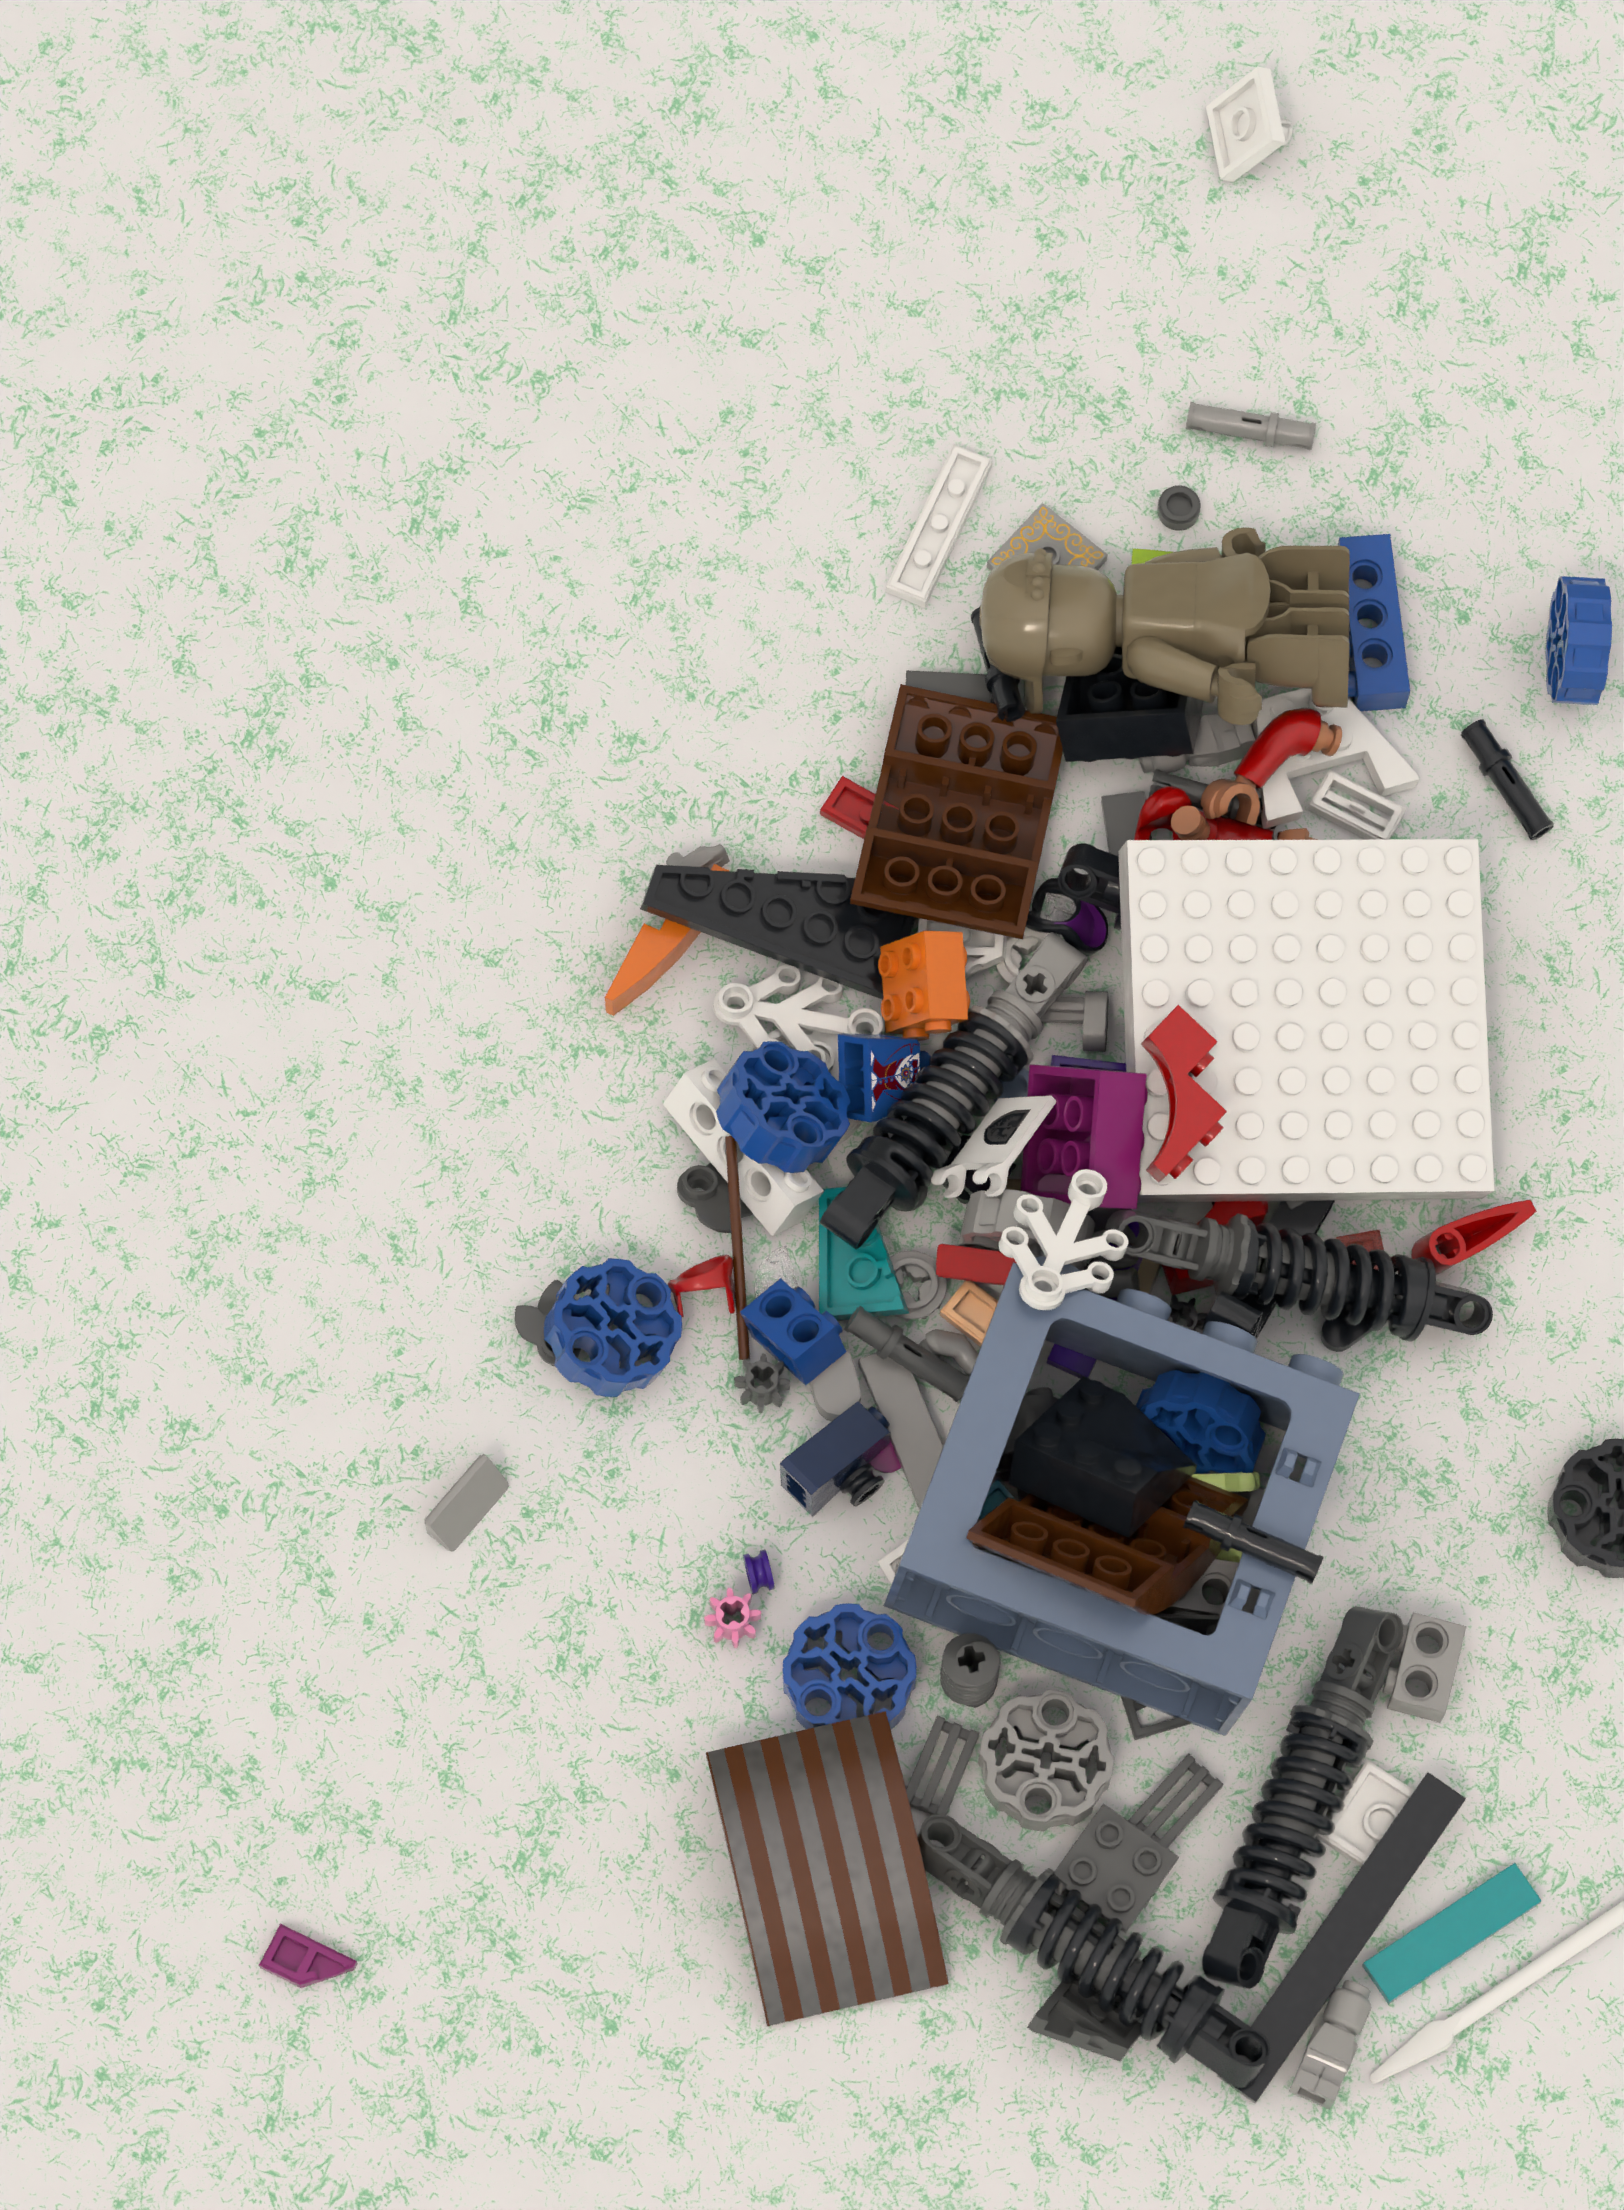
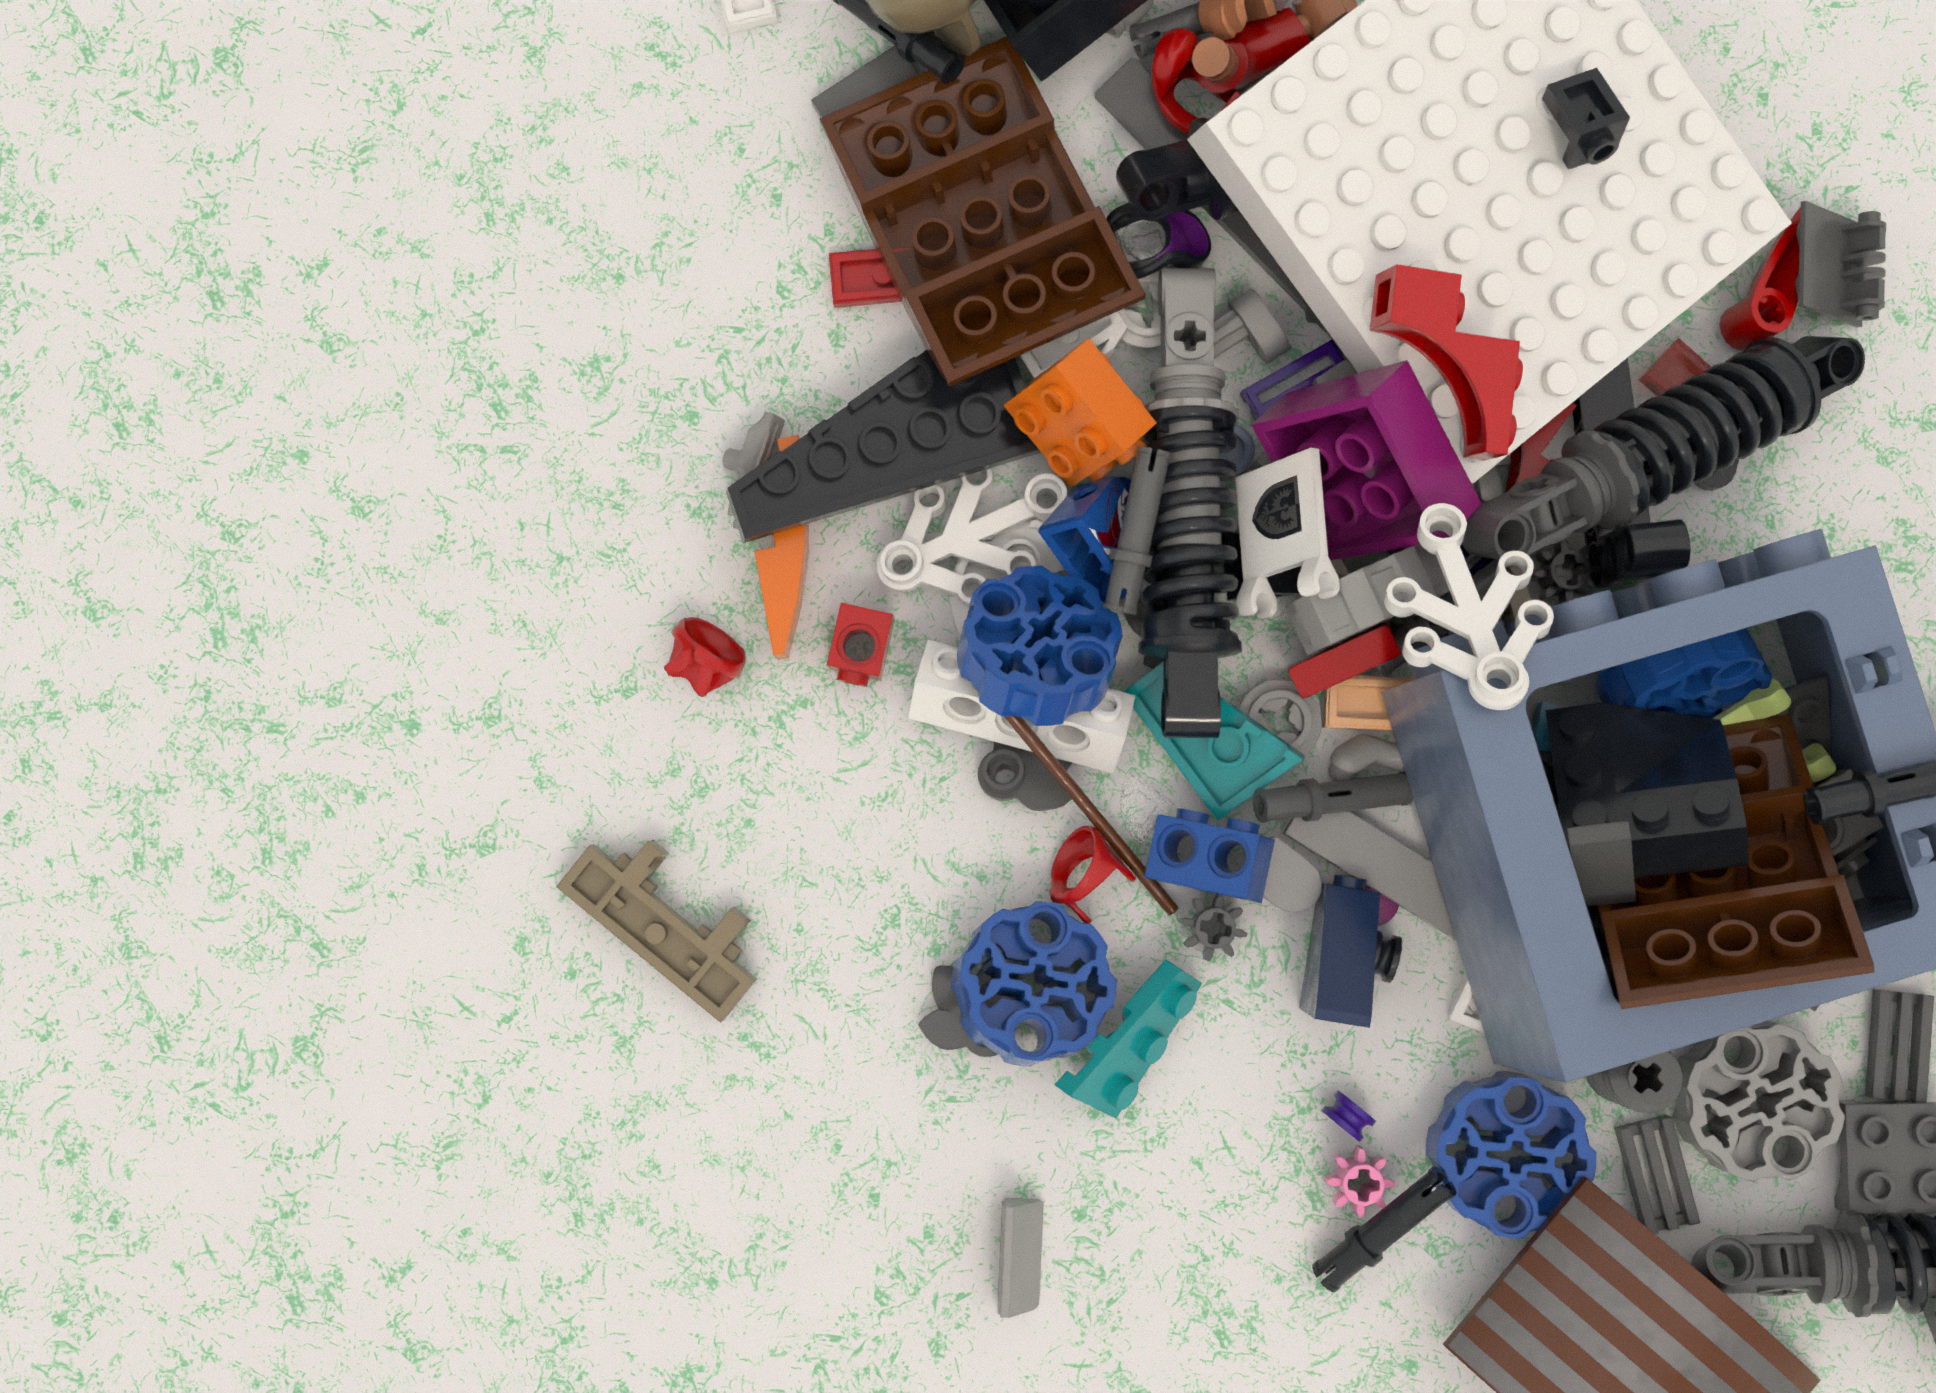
camera: 30 degrees left, 15 degrees up
(383, 1090) = (691, 958): none -> dark tan hinge
(557, 971) = (704, 655): none -> red piece
(643, 1417) = (1123, 1057): none -> teal wing
(671, 1017) = (857, 620): none -> red brick
(706, 1658) = (1367, 1242): none -> black pin
(901, 1076) = (1137, 530): none -> dark grey pin
(1031, 1464) = (1603, 862): none -> dark grey tile
(1383, 1012) = (1588, 117): none -> black bracket
(1519, 1251) = (1835, 263): none -> dark grey hinge

